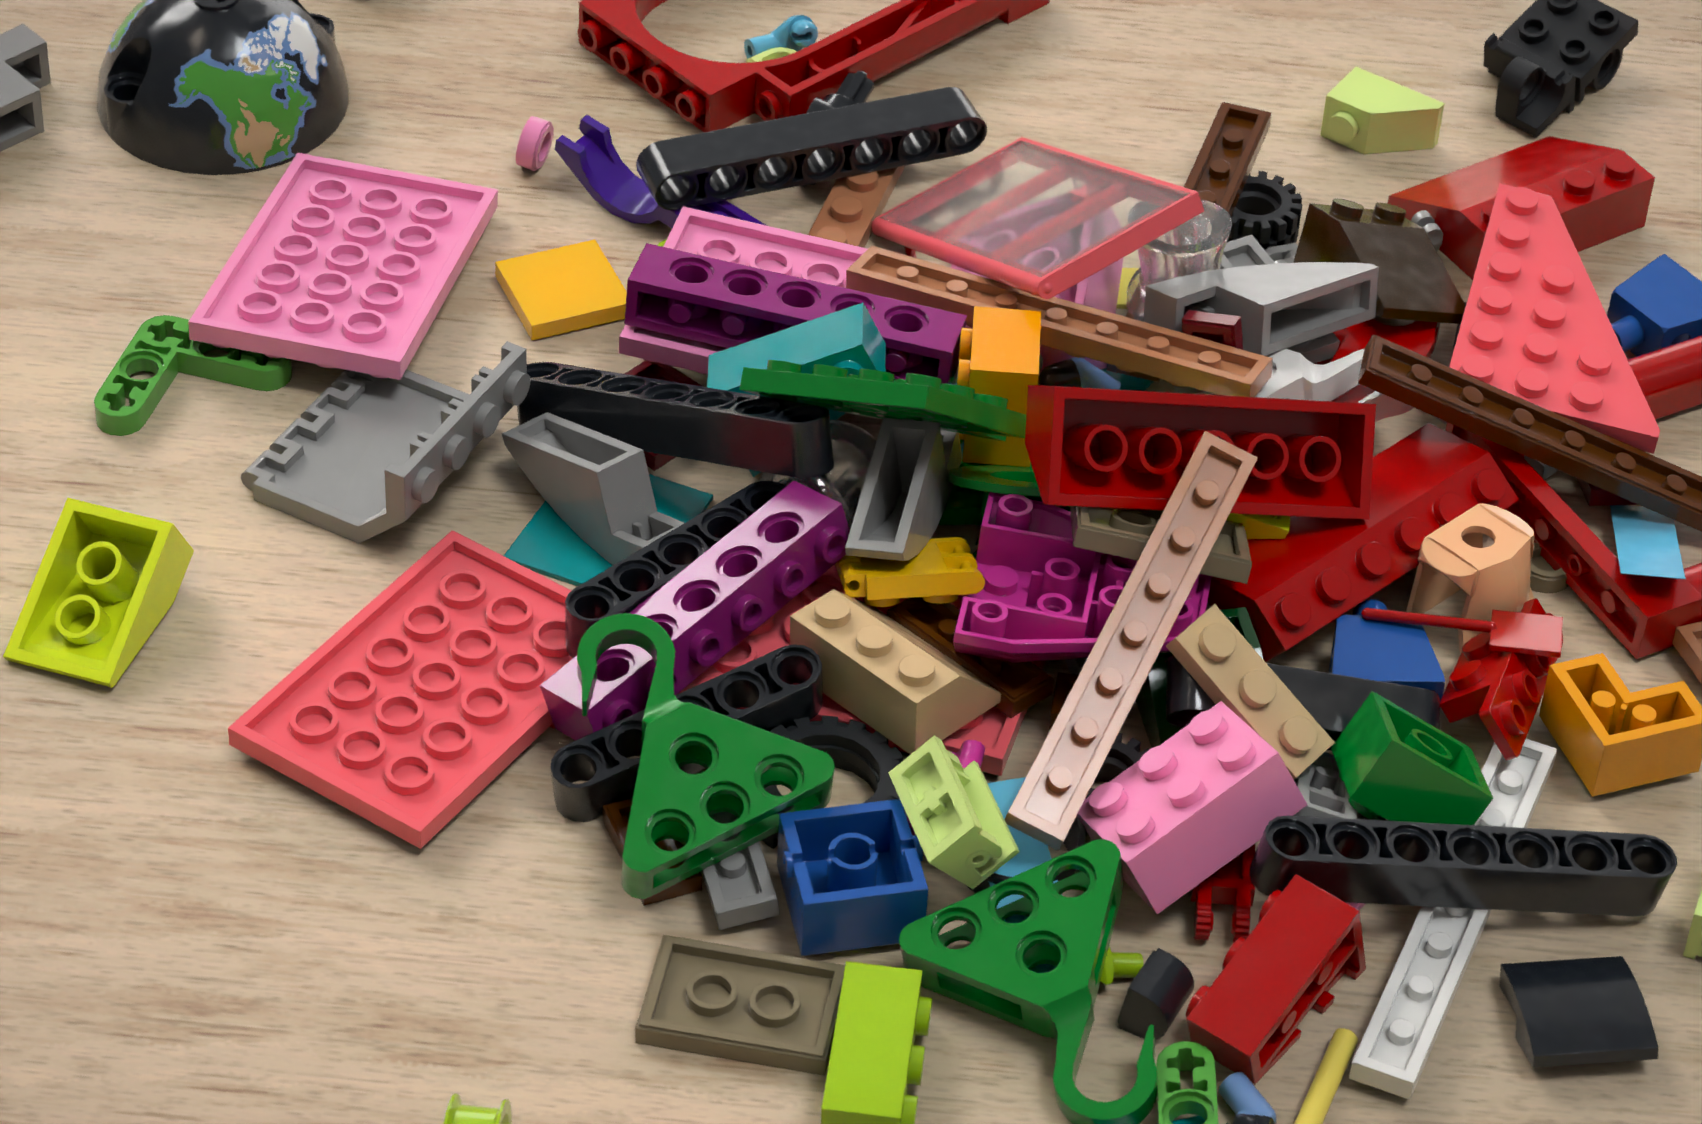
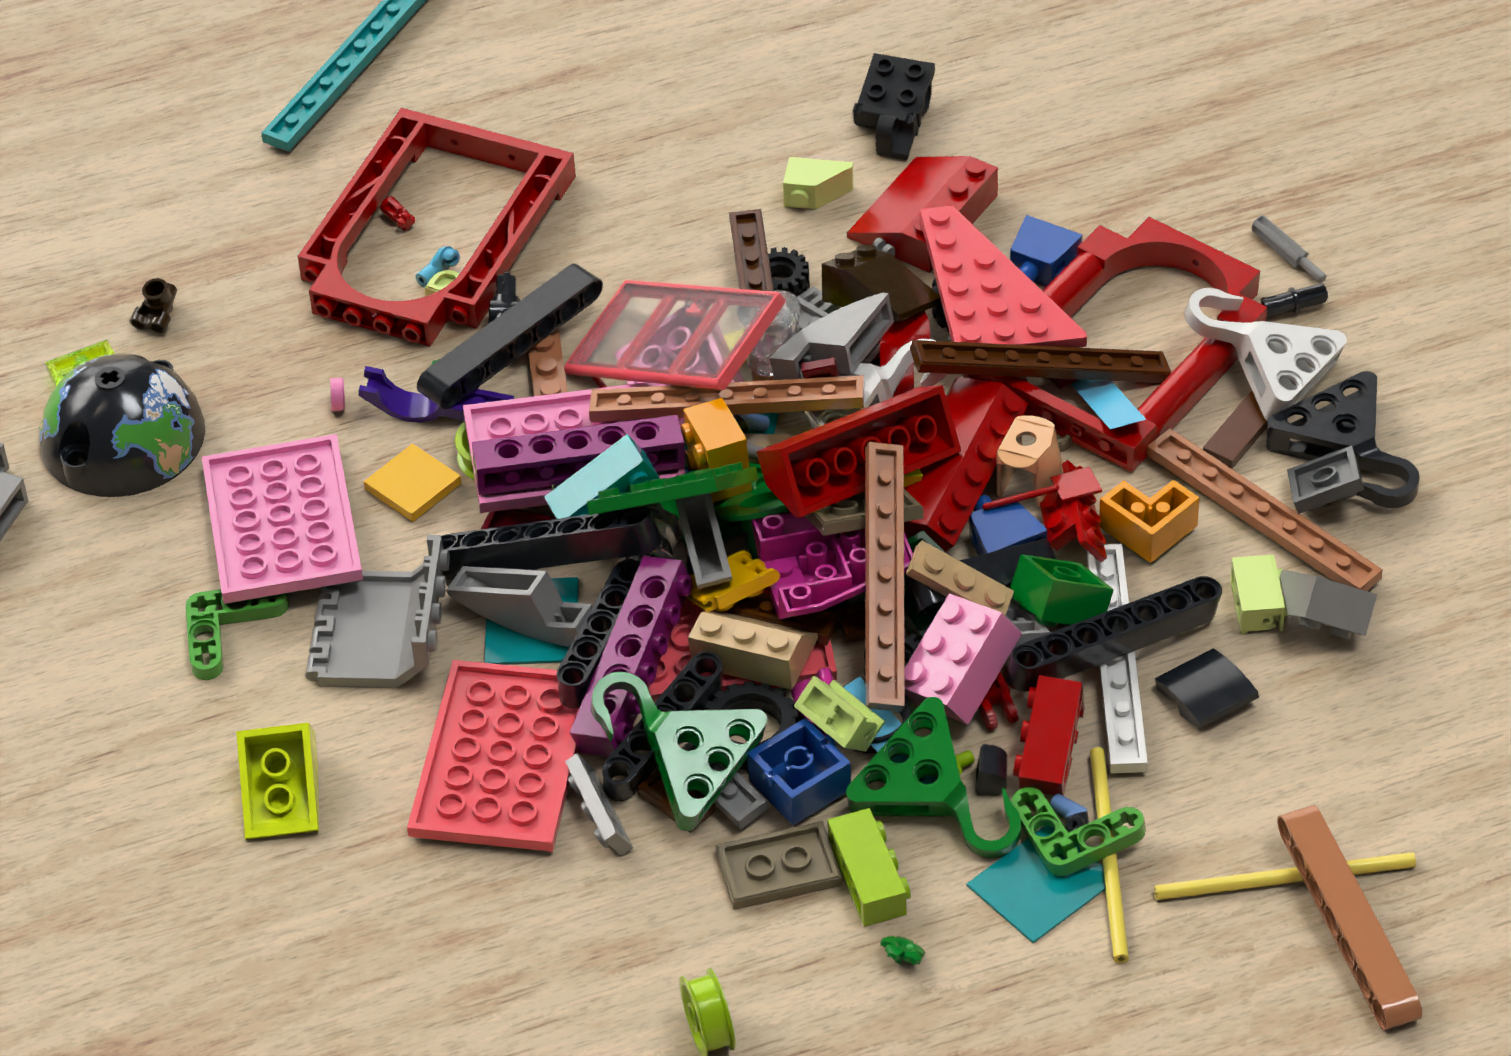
camera: 20 degrees left, 5 degrees up
(524, 809) = (597, 805): none -> light grey plate

